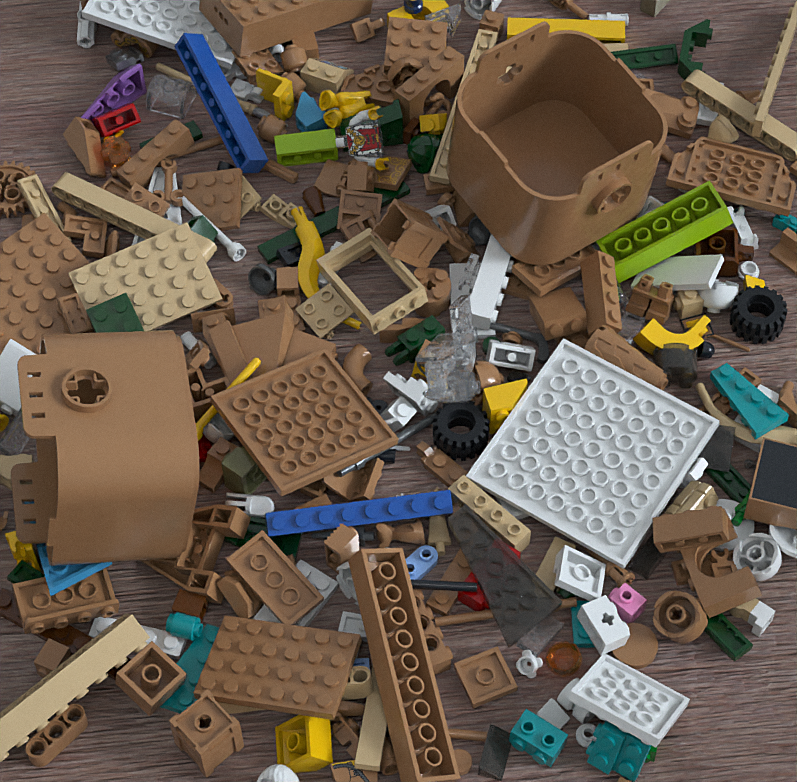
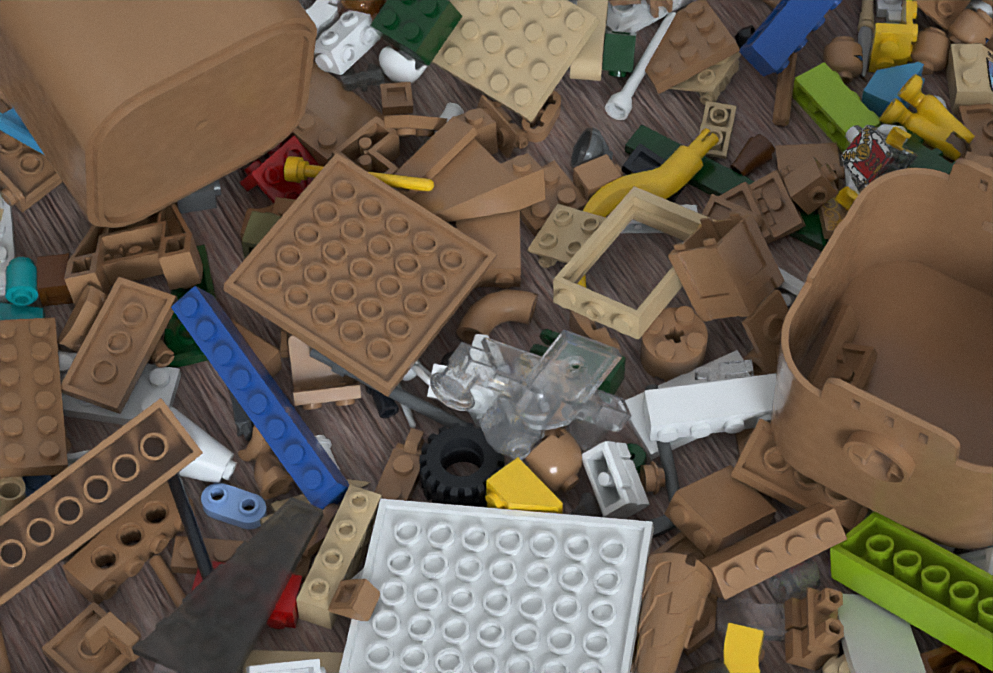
camera: 65 degrees right, 0 degrees up
(254, 506) = (222, 270): white arm -> none
(341, 546) = (204, 400): medium nougat brick -> none
(491, 651) = (113, 630): none -> medium nougat bracket
(532, 513) = (355, 599): none -> medium nougat slope

